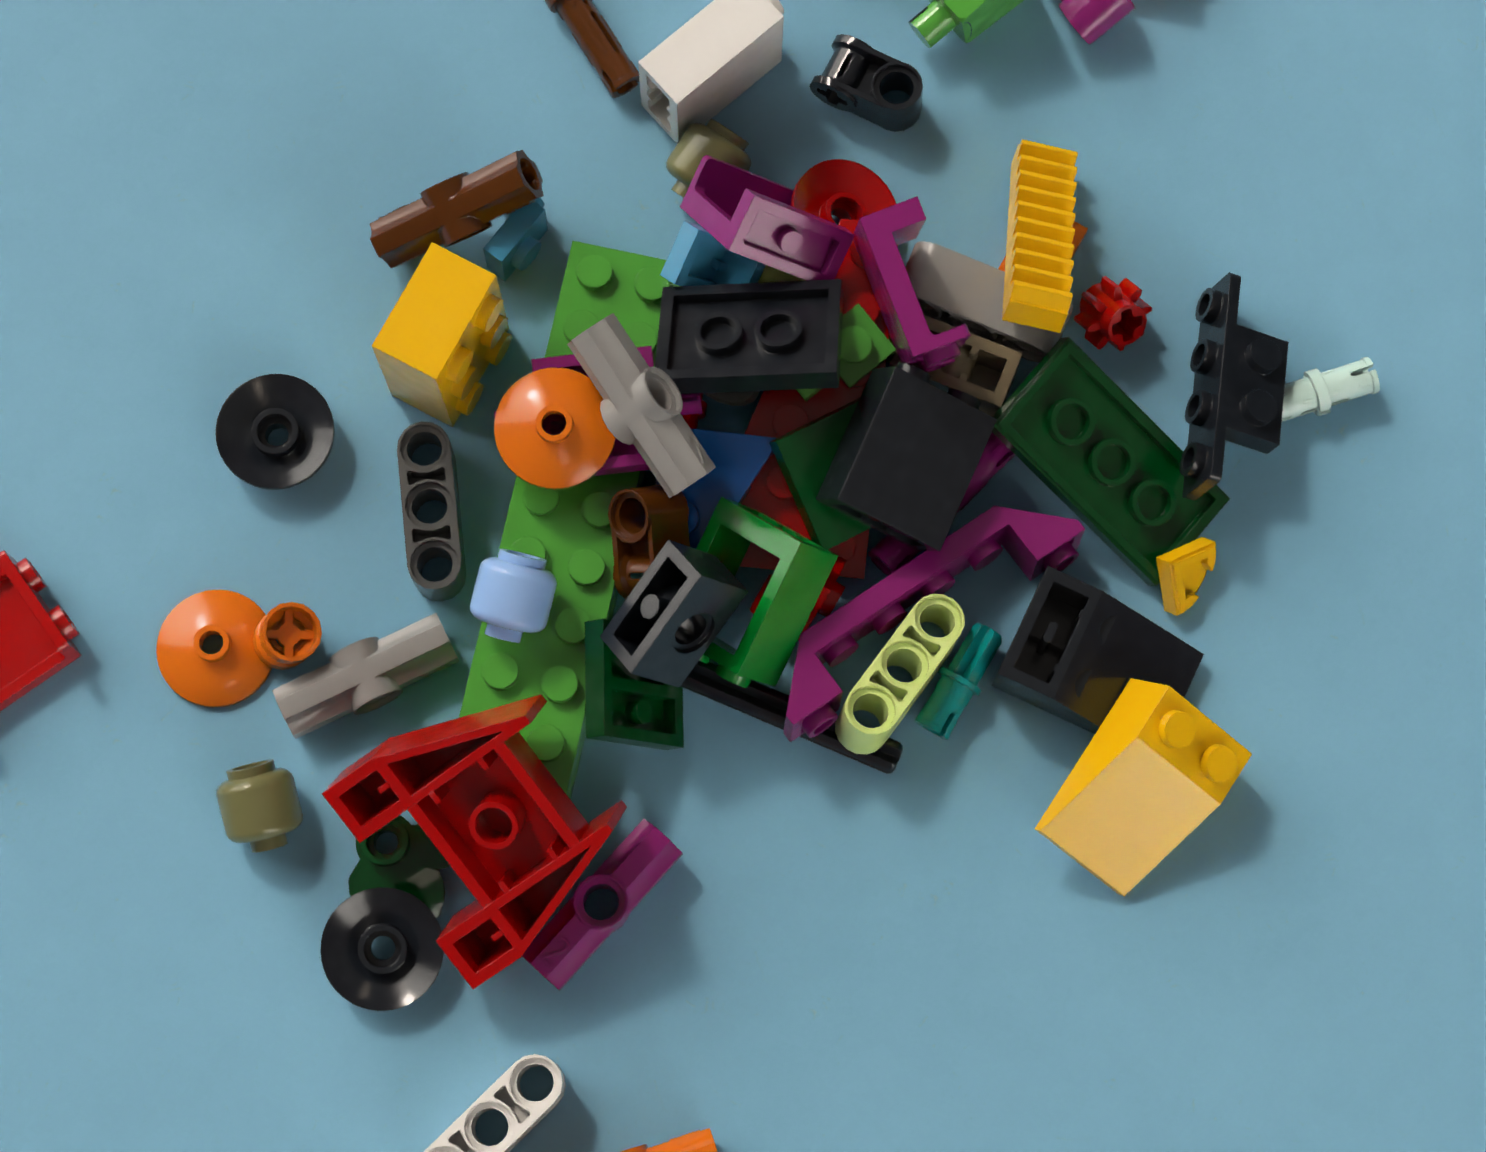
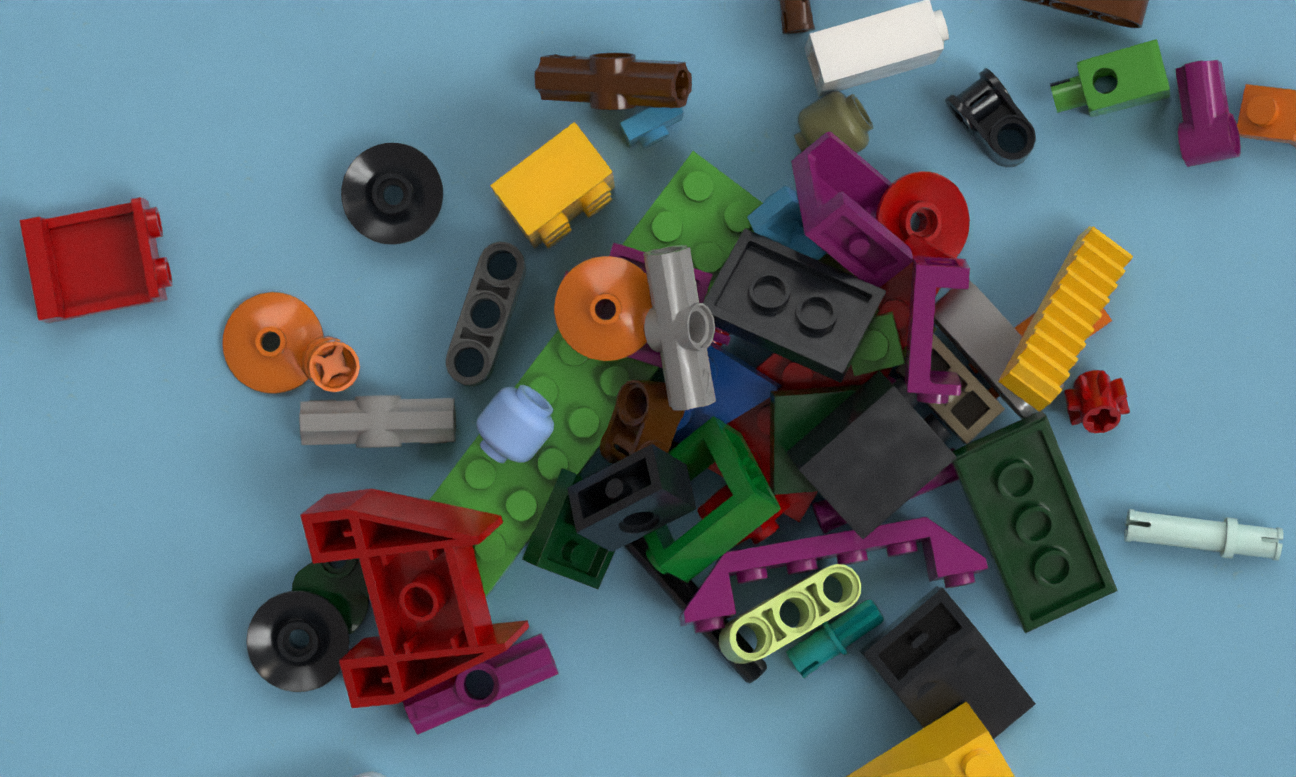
camera: 30 degrees right, 10 degrees up
(259, 805) = (252, 486): olive head -> none
(1183, 572) = (1050, 632): yellow tile -> none
(1234, 388) = (1161, 510): black bracket -> none

